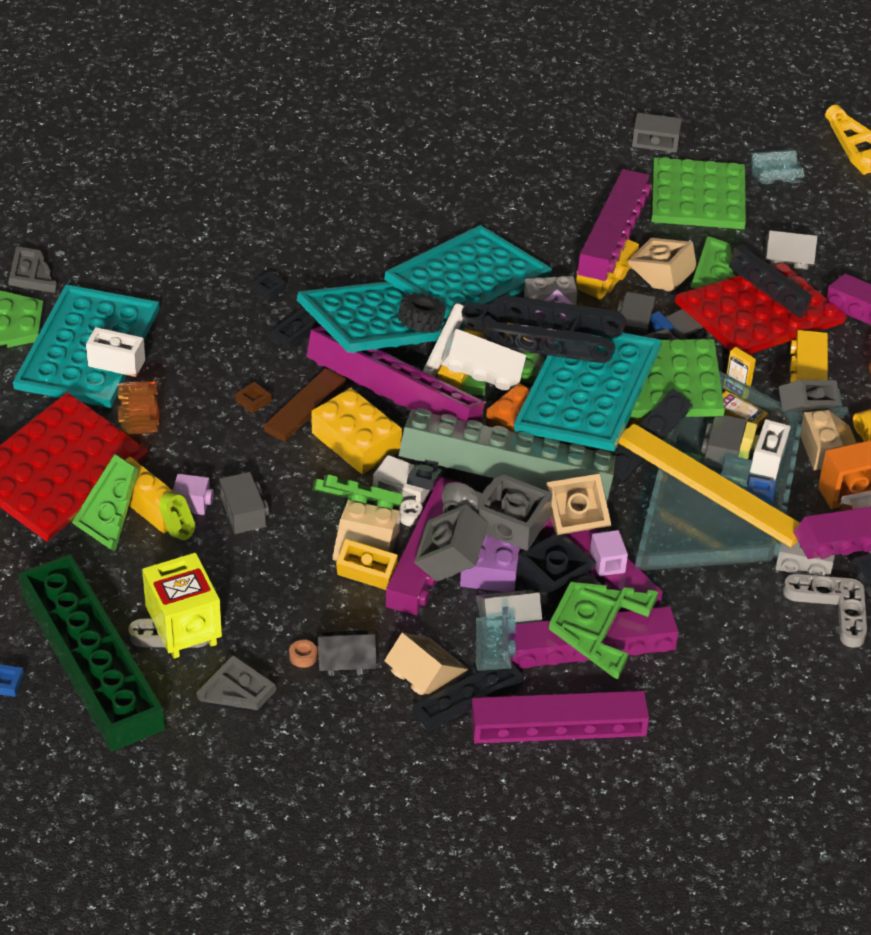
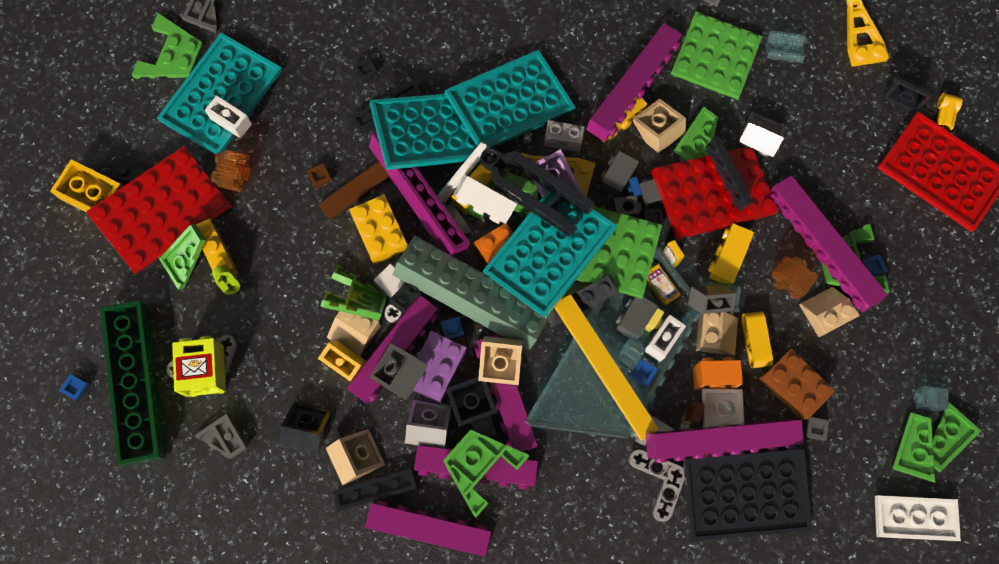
camera: 15 degrees right, 30 degrees up
(195, 491) = (246, 257): lavender brick -> none
(243, 502) = (279, 274): dark grey brick -> none
(303, 653) = (276, 417): nougat tile -> none
(421, 312) = (460, 131): black tyre -> none
(494, 641) = (402, 460): clear light blue bracket -> none
(508, 505) = (445, 355): dark grey brick -> none
(608, 553) = (509, 406): lavender brick -> none

